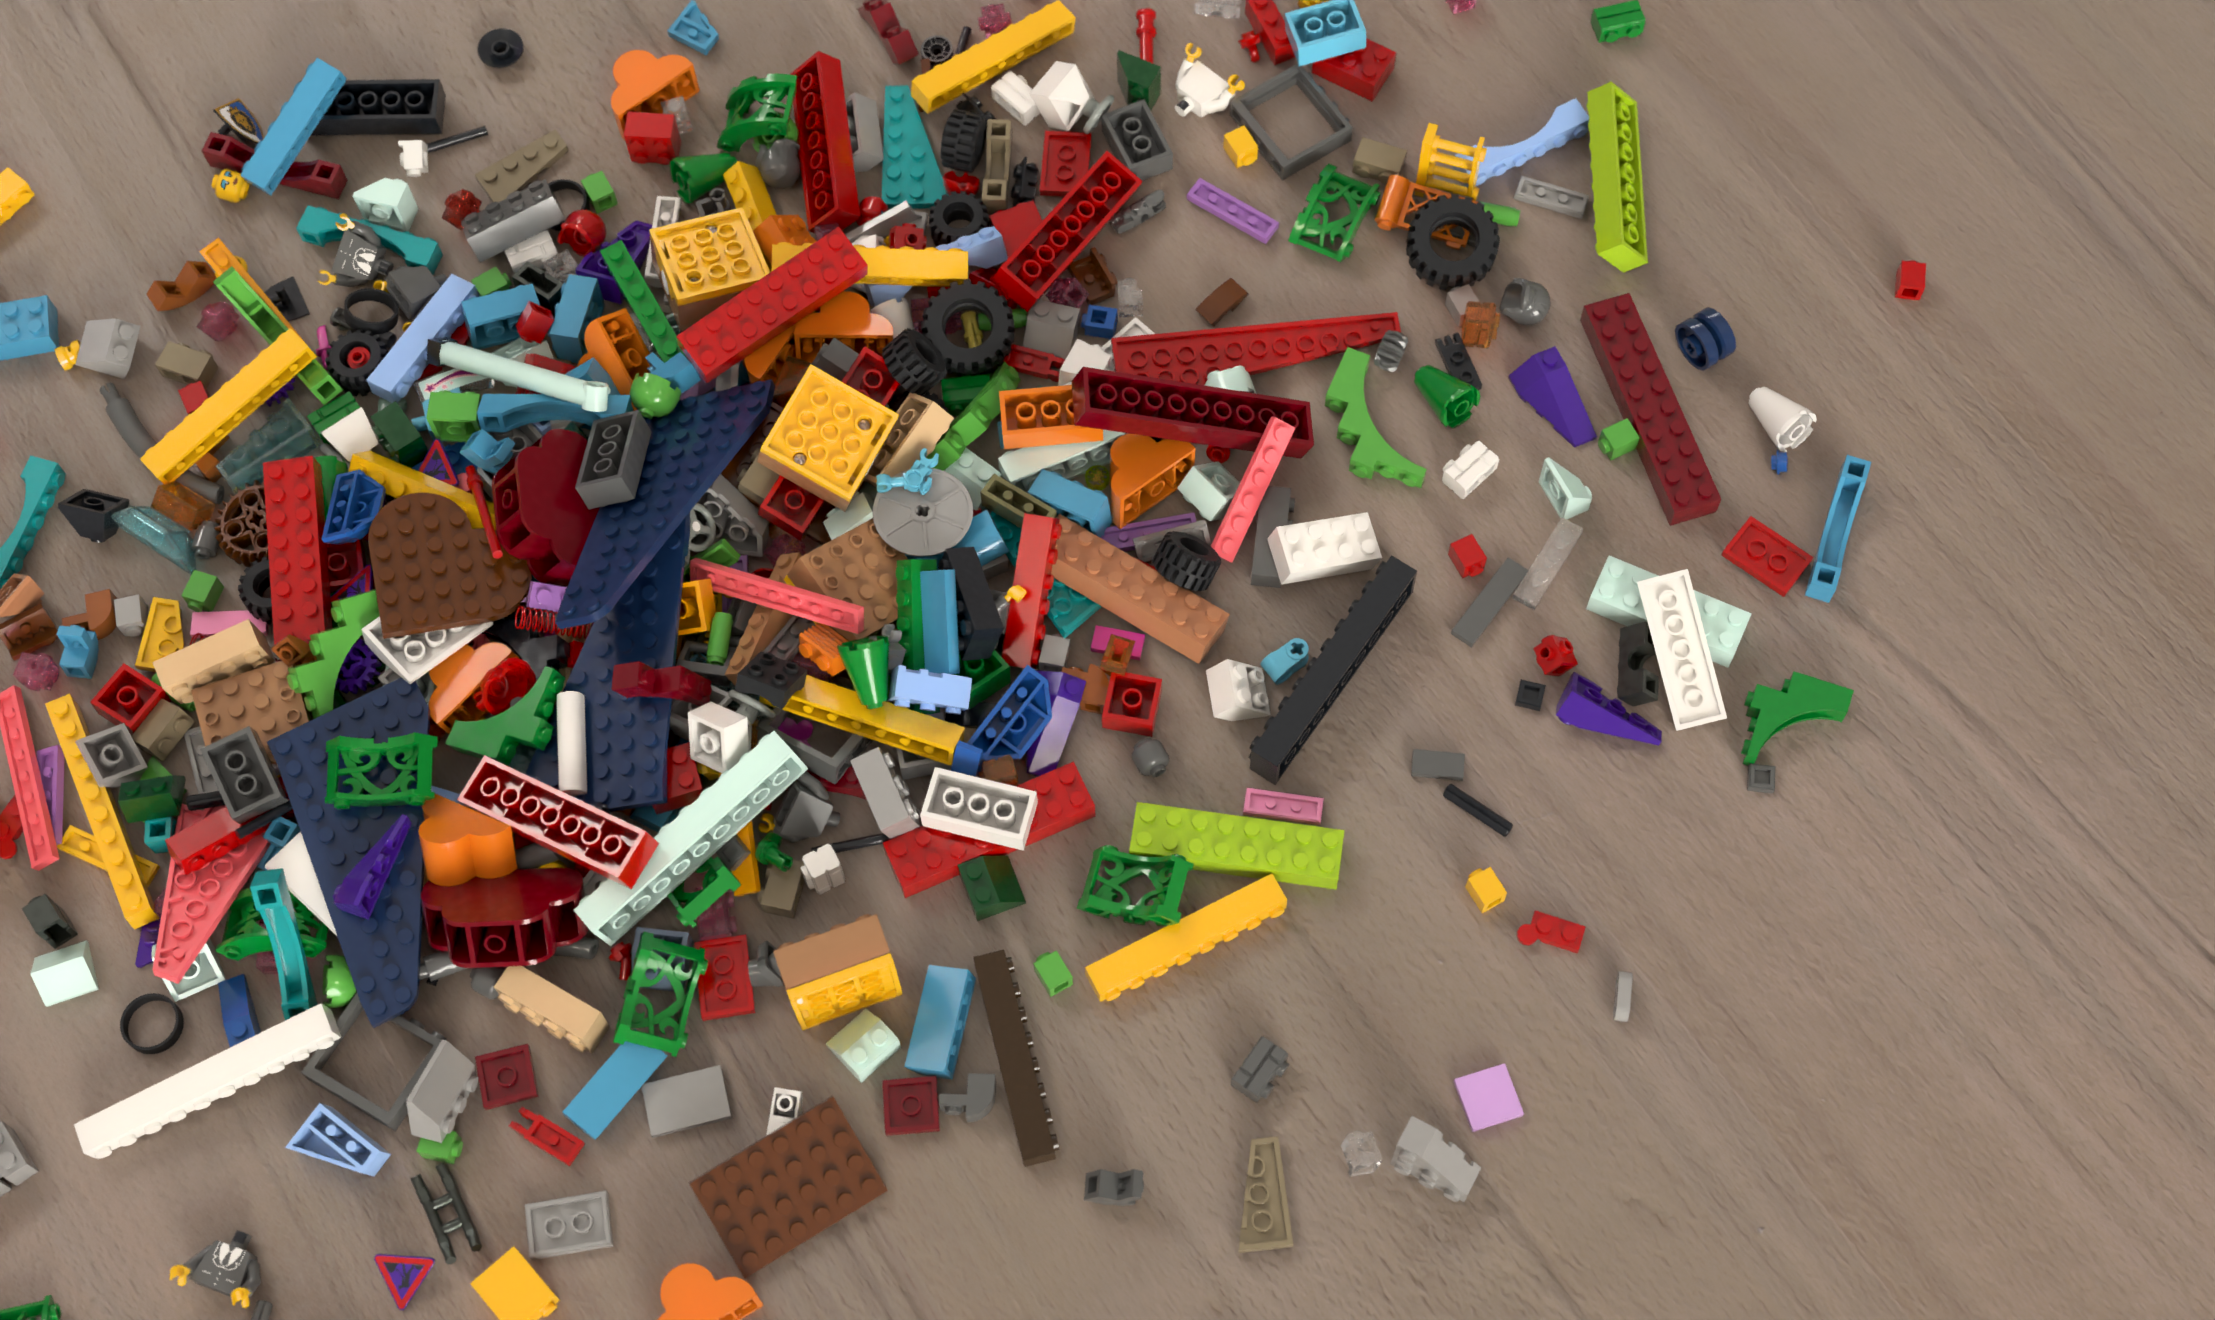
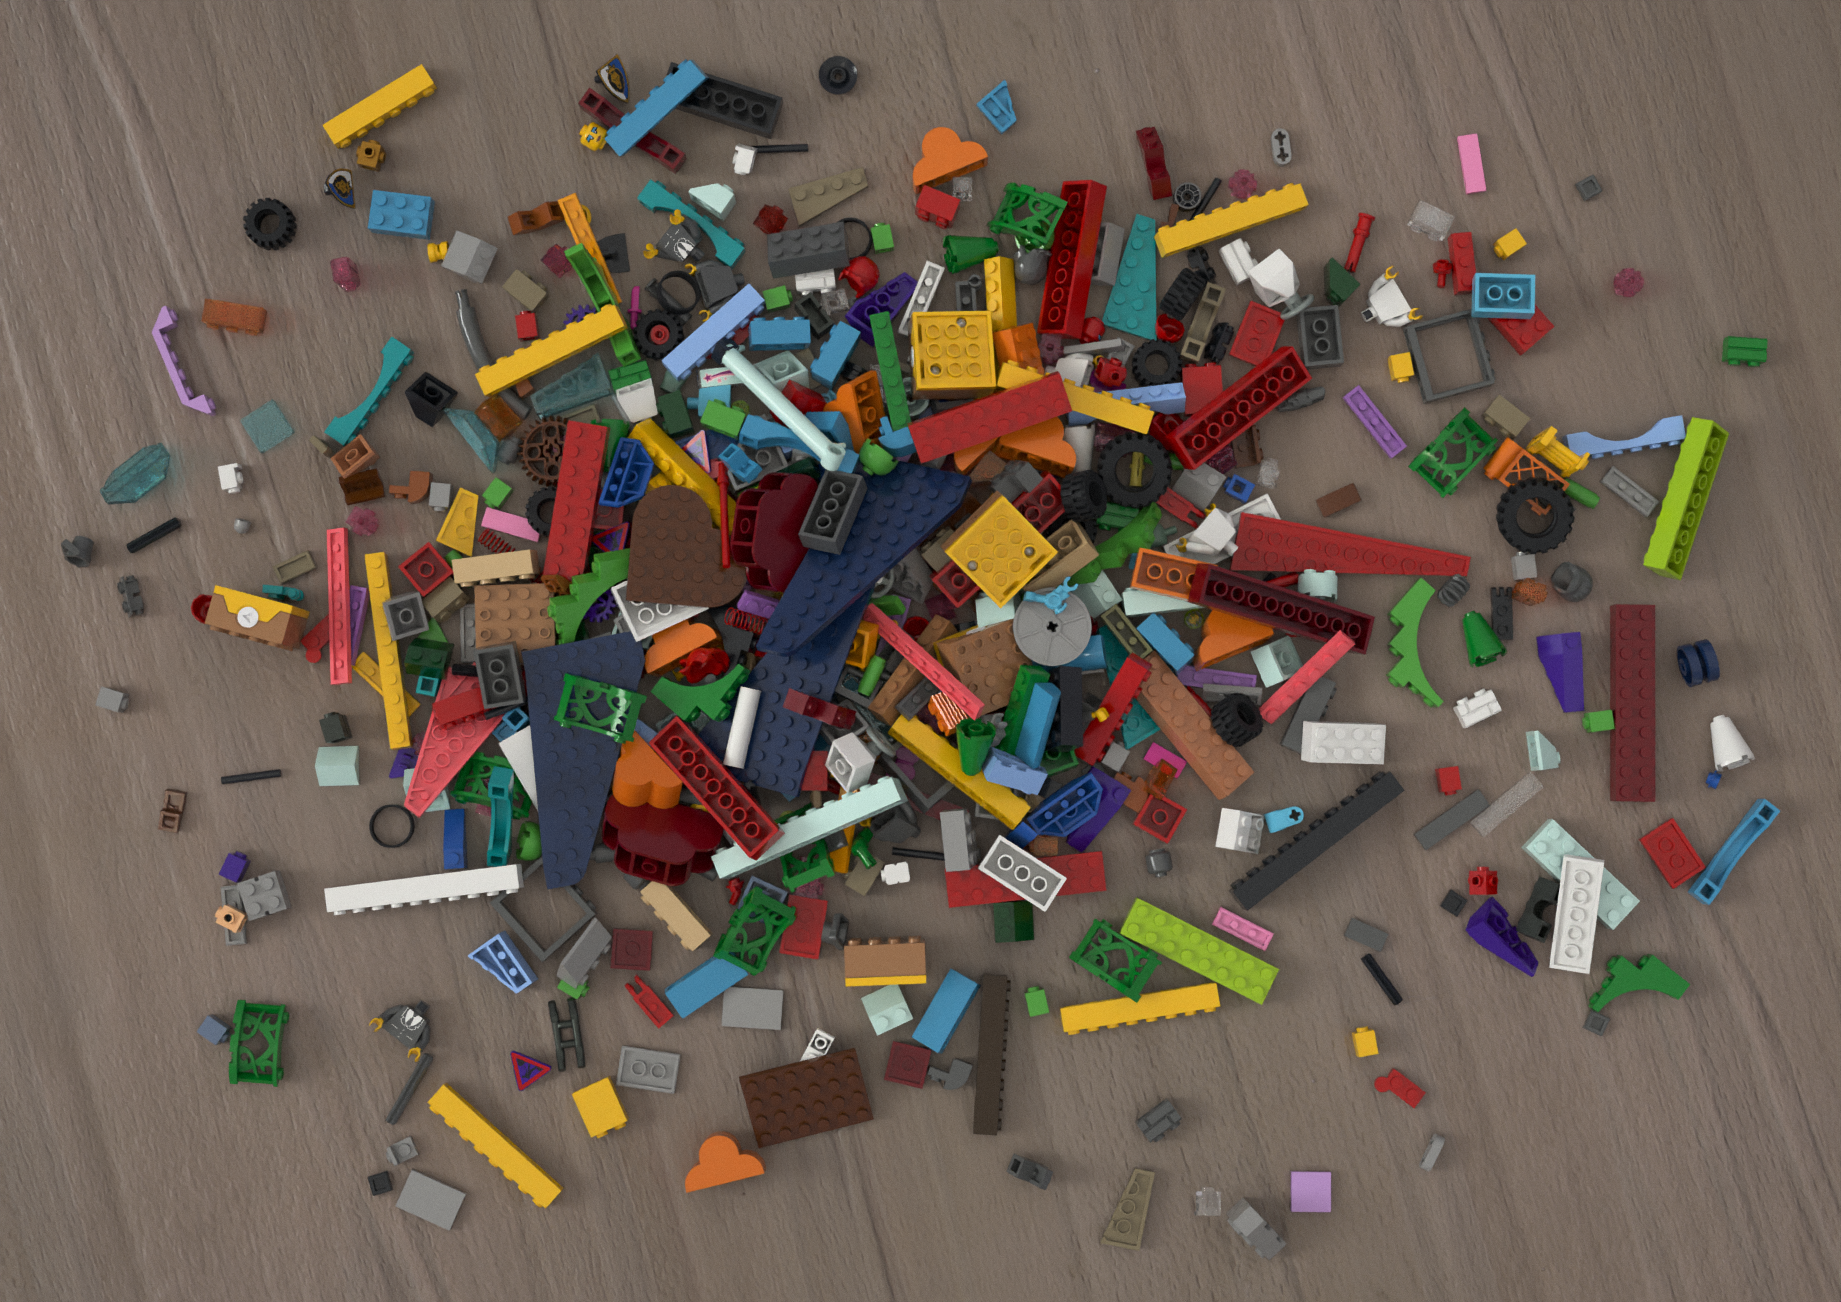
camera: 15 degrees right, 20 degrees up
(79, 652) = (396, 515): dark azure brick -> none
(366, 880) = (565, 790): dark purple wedge -> none
(534, 323) = (802, 355): red brick -> none
(771, 678) = (901, 731): black brick -> none

